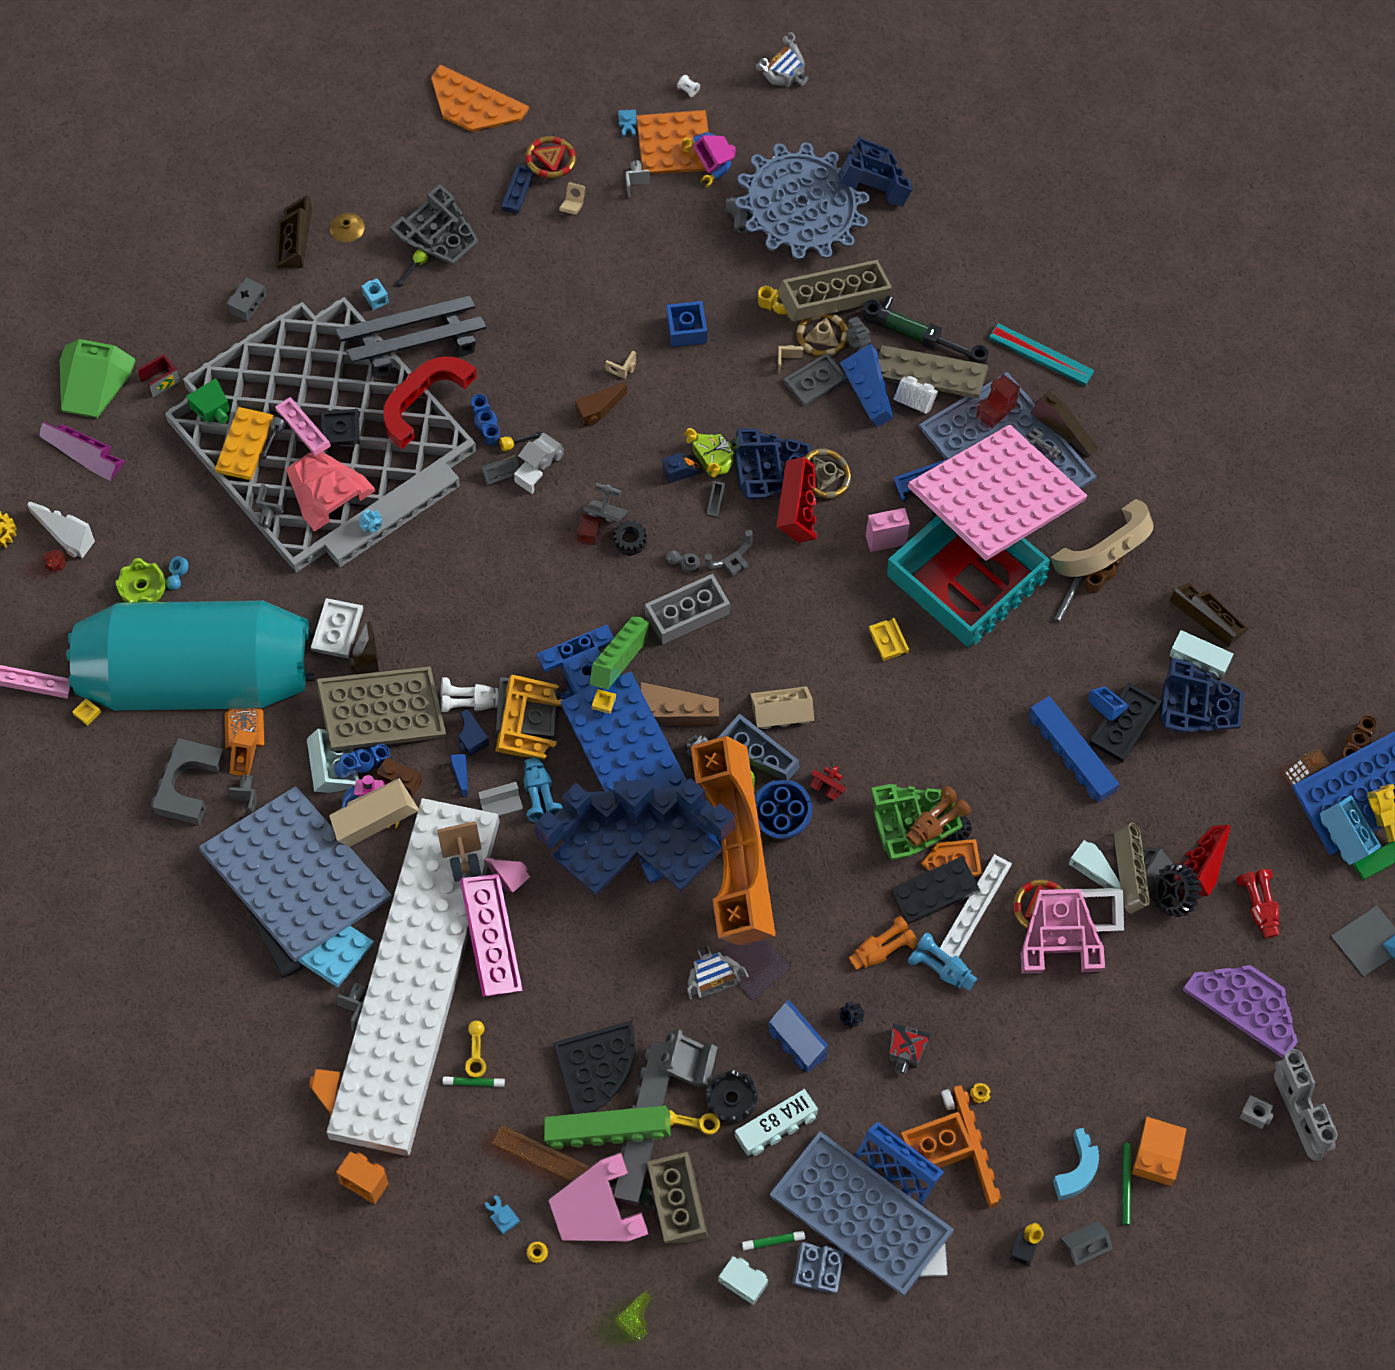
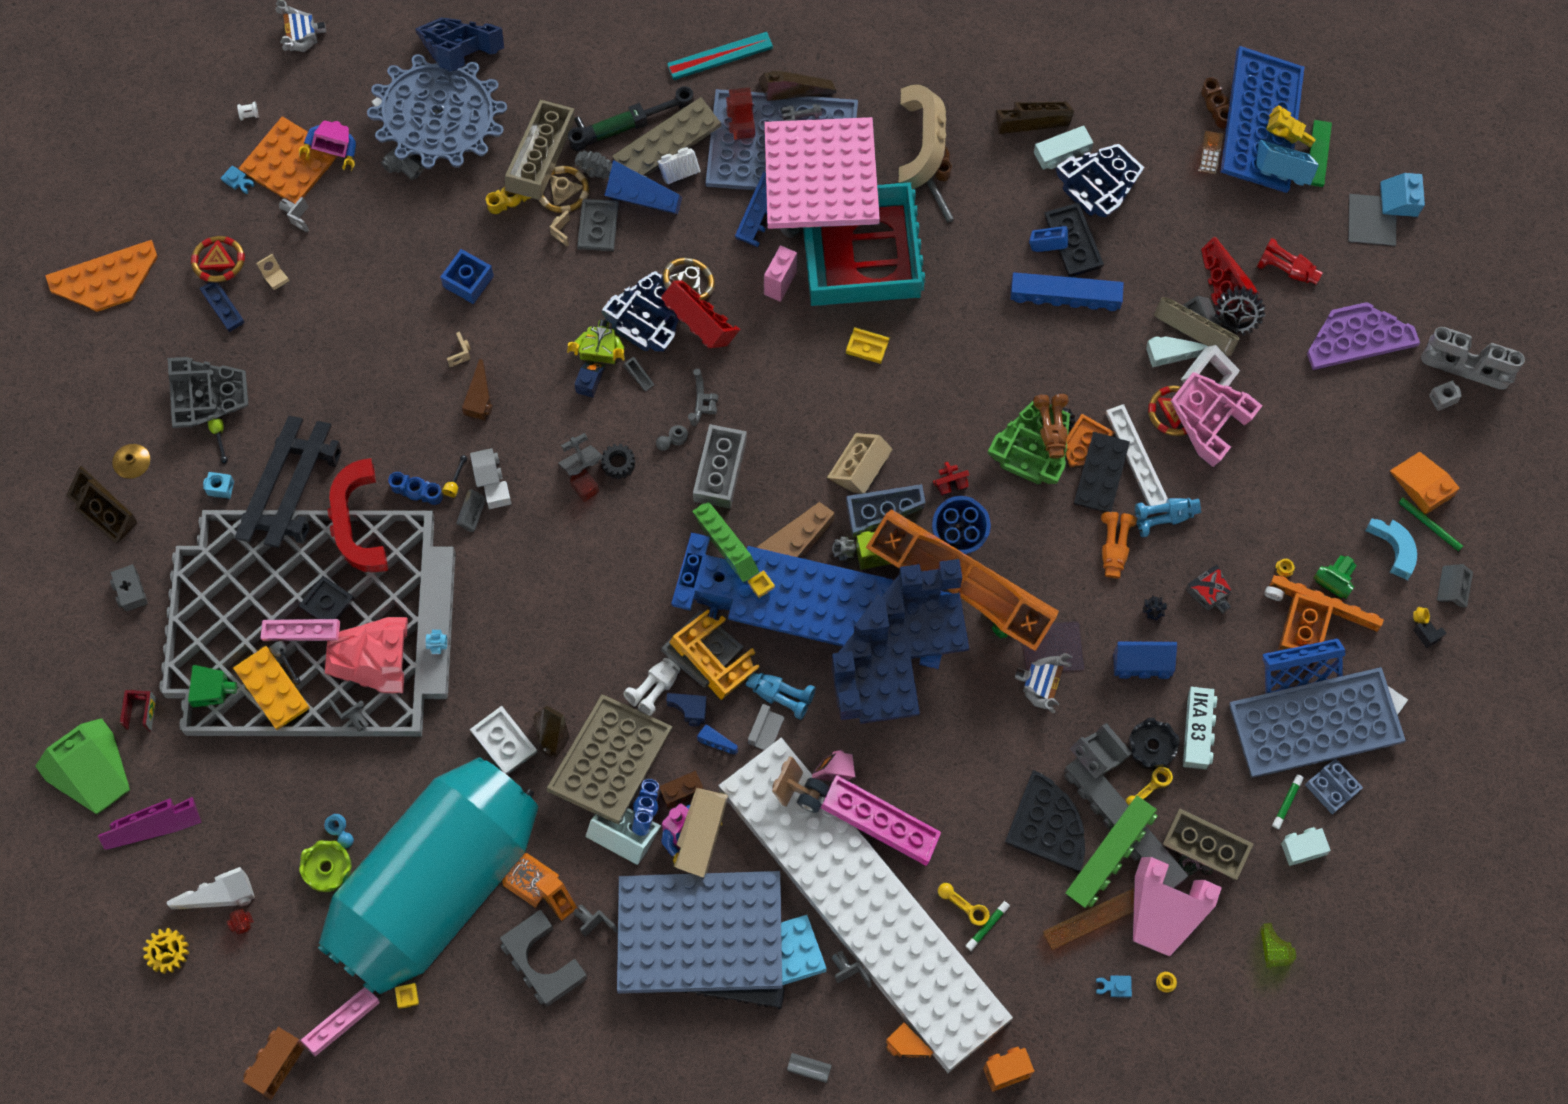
camera: 50 degrees left, 5 degrees up
(251, 1031) = (809, 1067): none -> dark grey axle
(1005, 1139) = (1337, 577): none -> green piece

